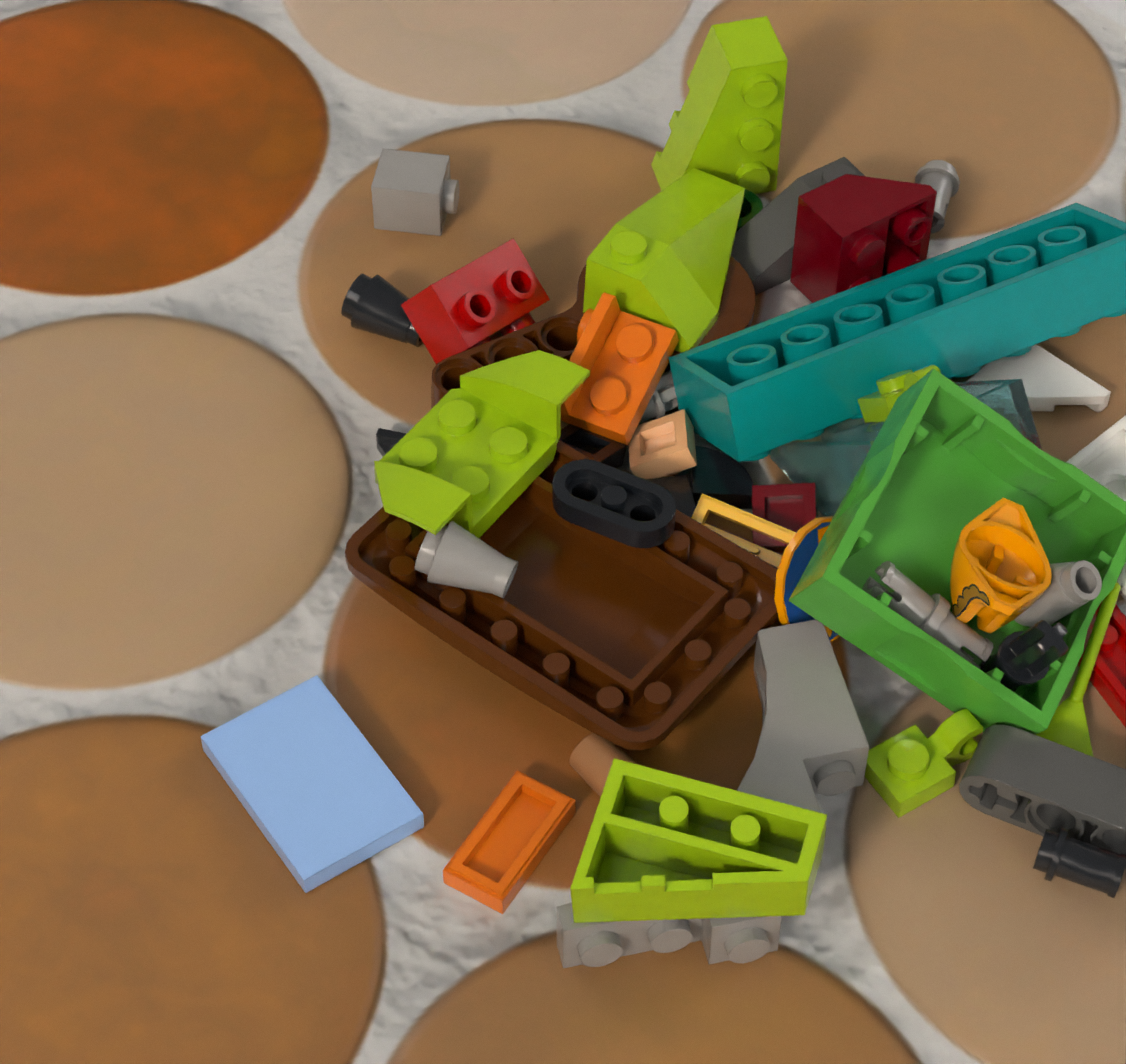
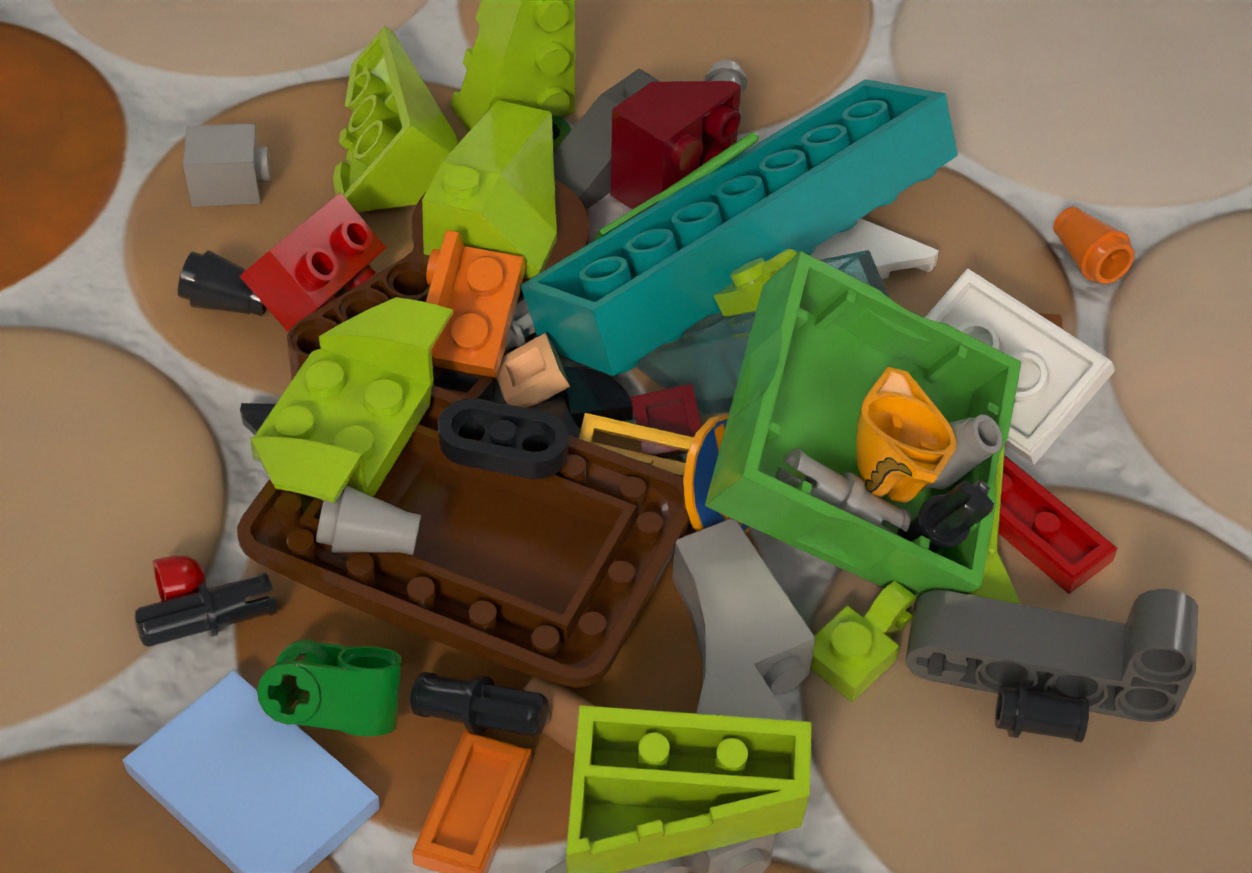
camera: 15 degrees left, 0 degrees up
(285, 584) = (177, 575): none -> red hinge
(302, 616) = (204, 610): none -> black axle
(404, 707) = (335, 687): none -> green piece
(535, 748) = (479, 704): none -> black axle
(585, 182) = (394, 130): none -> lime wedge
(885, 270) = (703, 170): none -> bright green piece

